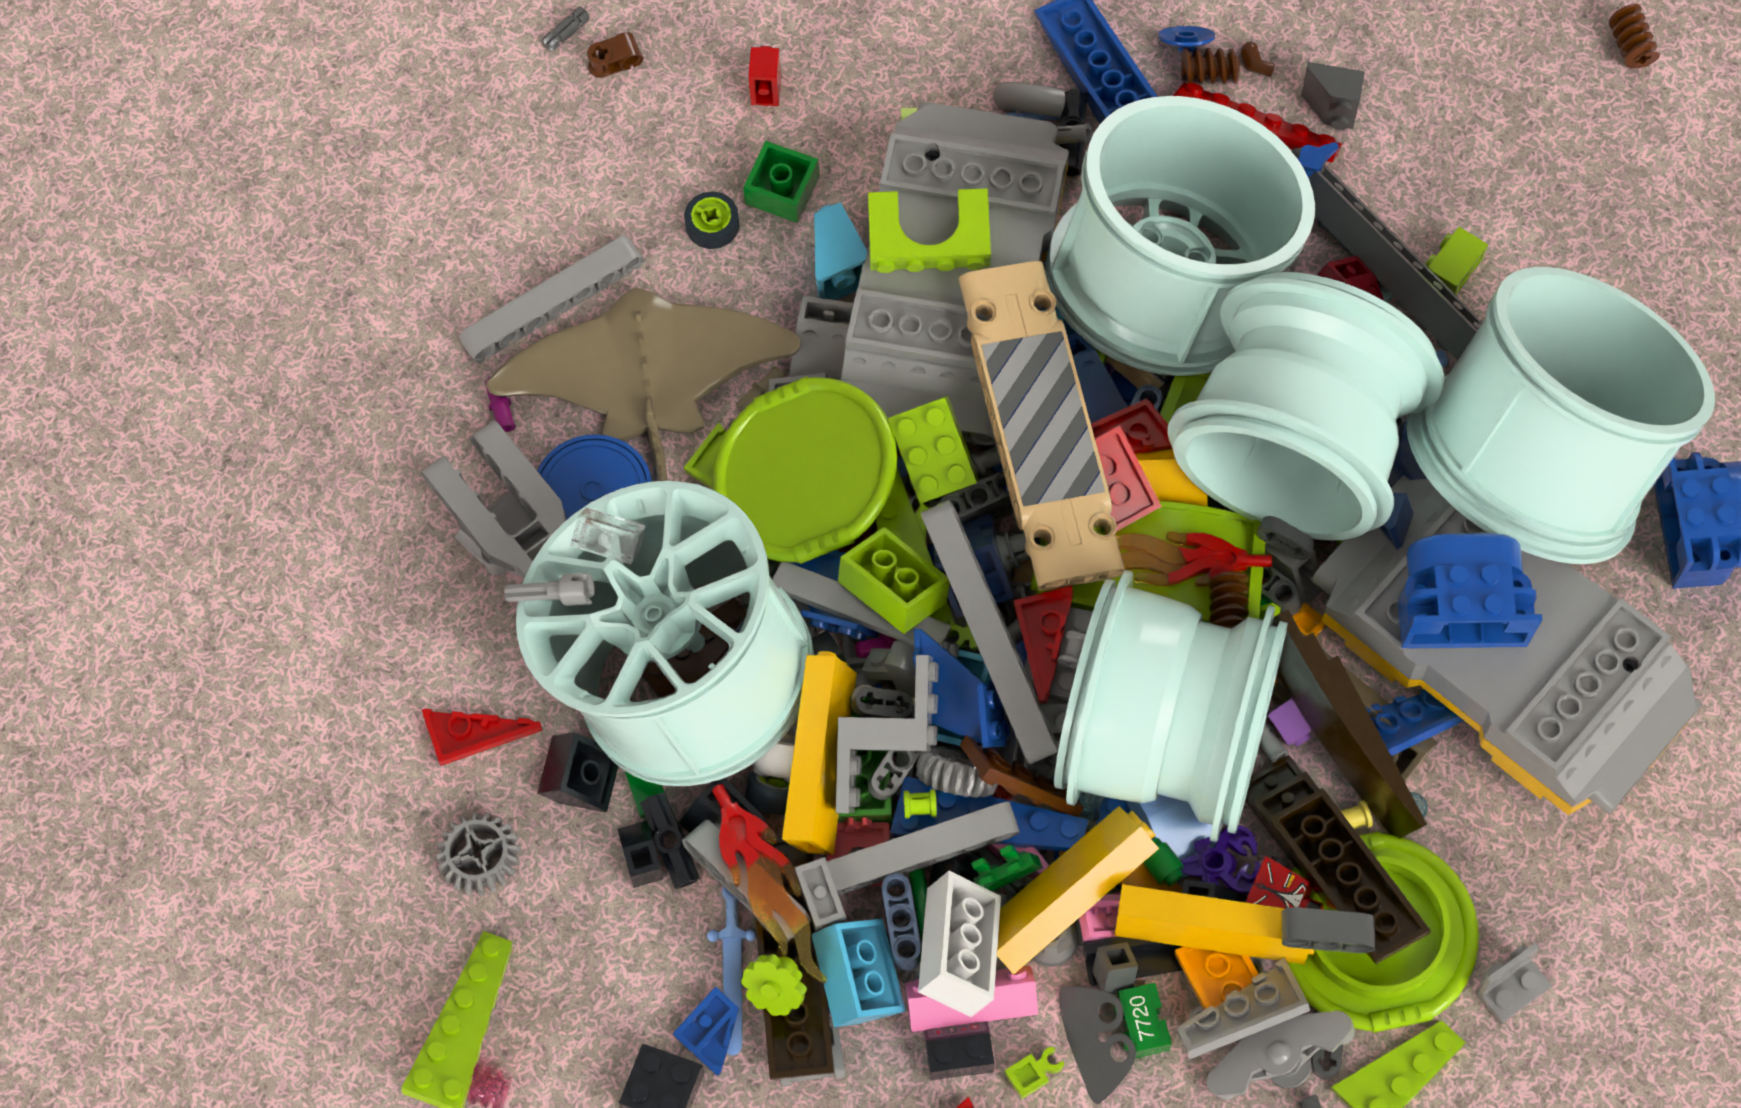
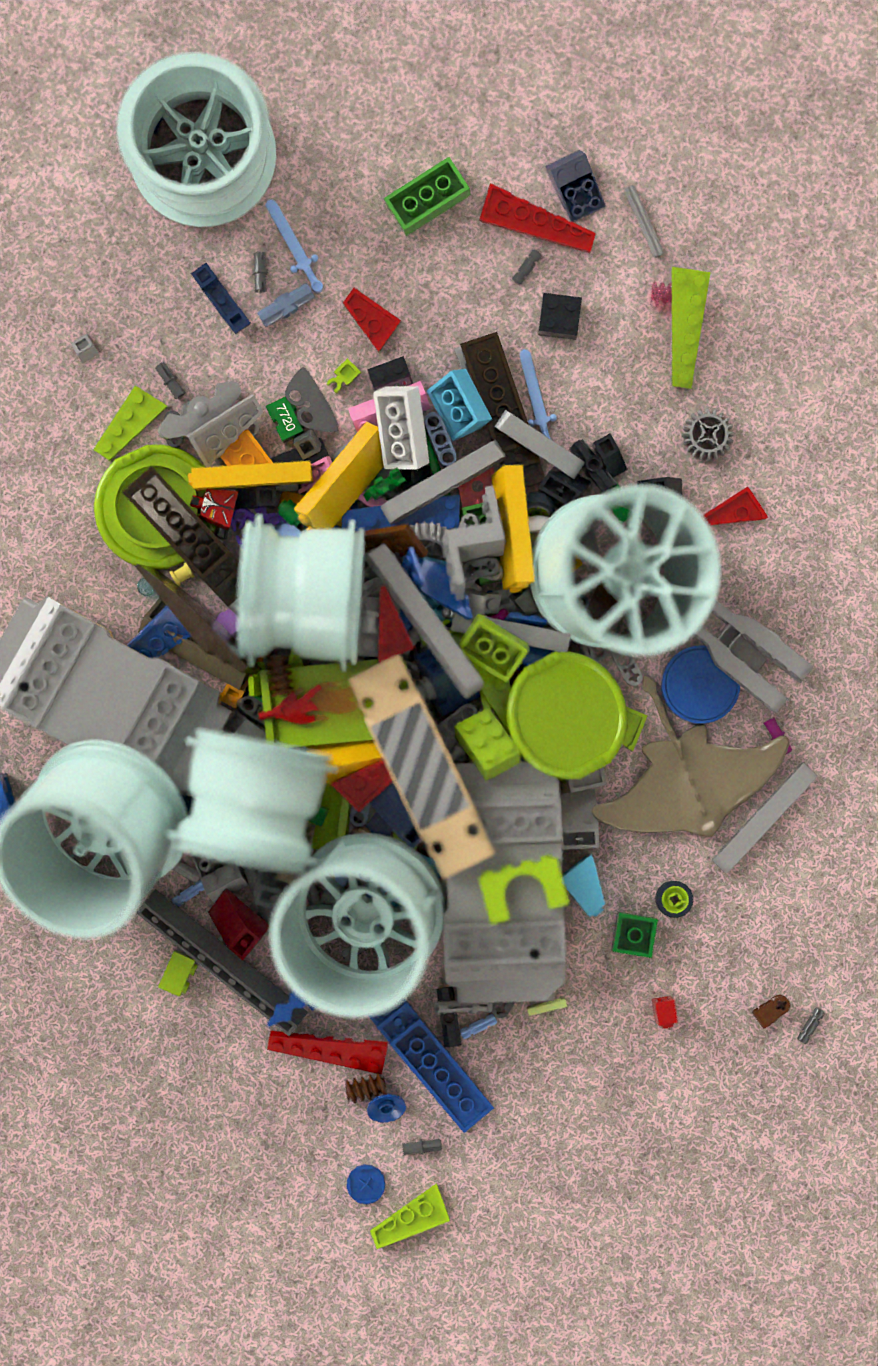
camera: 165 degrees right, 20 degrees up
(570, 590) = (689, 567): light grey piece -> none
(608, 535) = (673, 607): clear panel -> none
(709, 1030) = (540, 358): blue wing -> none
(759, 388) = (612, 781): dark tan axle -> none
(764, 864) = (529, 449): piece -> none
(774, 984) = (506, 382): lime plant -> none
(819, 894) = (492, 441): light grey panel -> none
(919, 803) = (450, 511): lime bush -> none
(1029, 98) = (482, 1032): light grey cylinder -> none
(1126, 481) = (361, 744): wing -> none
(1253, 61) = (338, 1102): reddish brown arm -> none
(1285, 537) = (252, 734): dark grey beam -> none
(1328, 930) = (182, 475): dark grey beam -> none
(1333, 93) = (277, 1079): dark grey slope -> none
(1398, 523) = (183, 752): dark blue slope -> none
(1466, 593) = (131, 700): blue brick -> none
(1514, 985) = (69, 489): light grey bracket -> none
(1632, 37) = (83, 1174): reddish brown piece -> none

